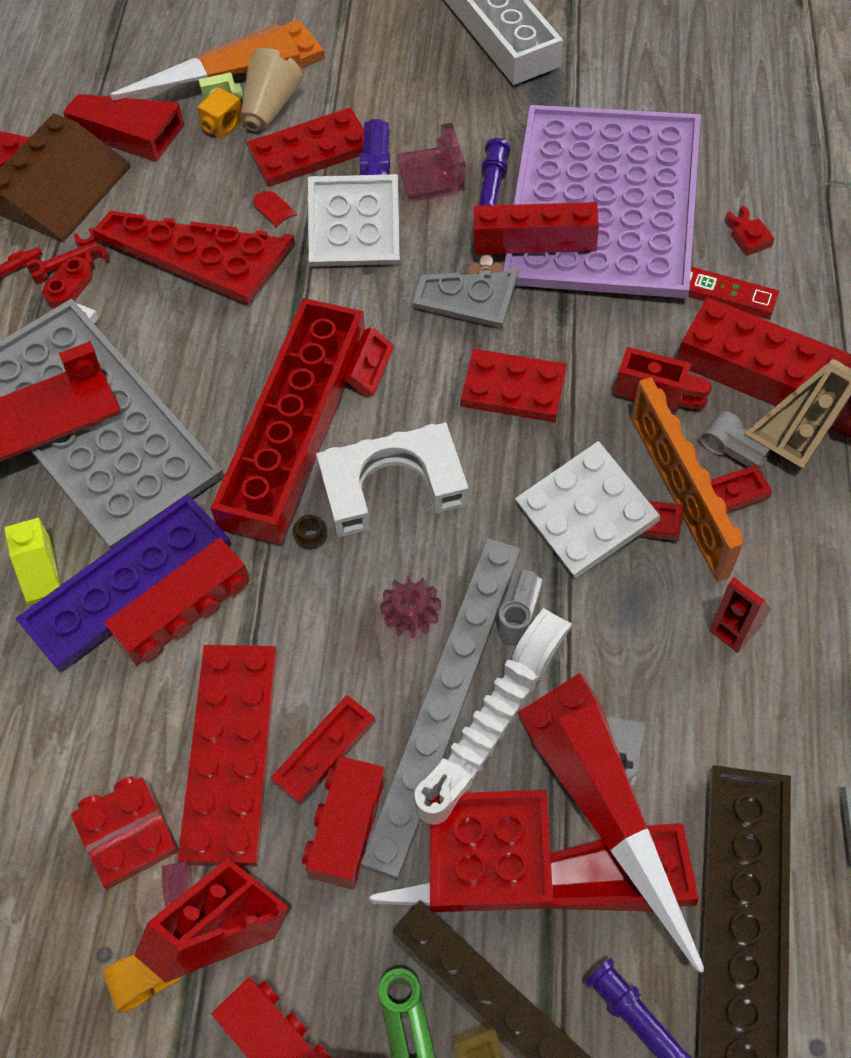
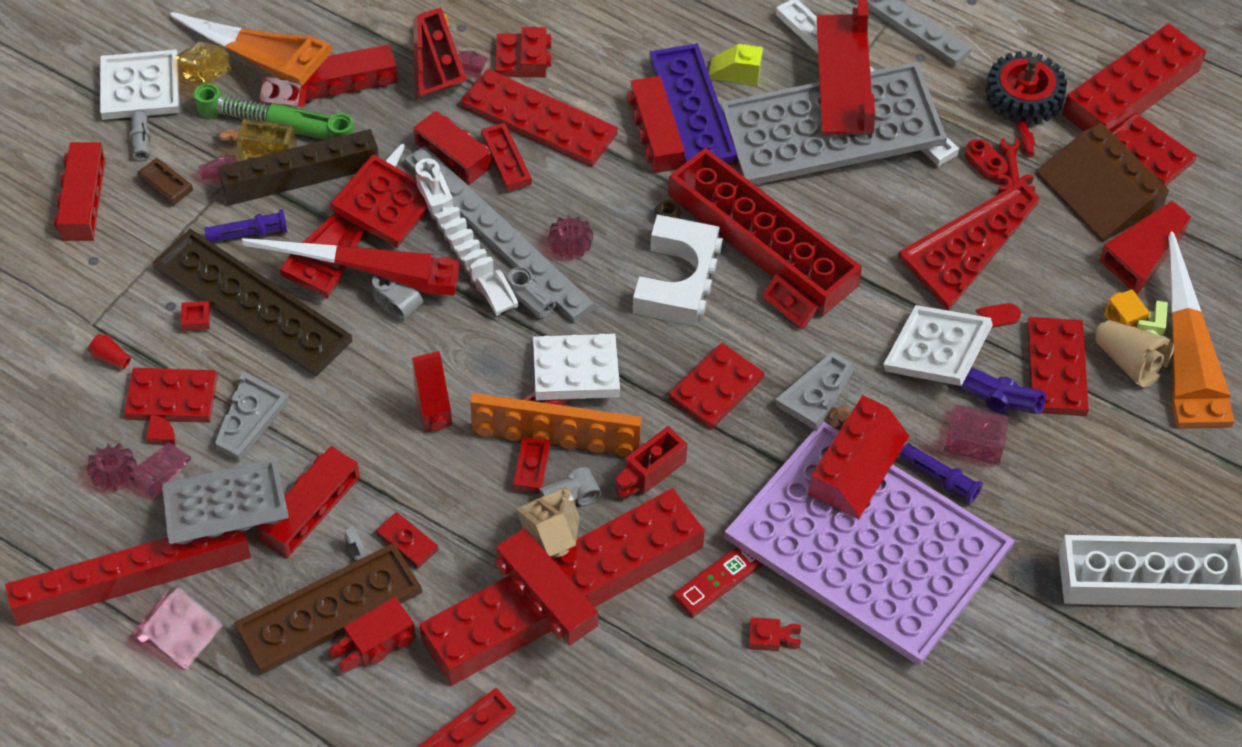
camera: 115 degrees right, 5 degrees down
(819, 989) = (195, 316): none -> red plate

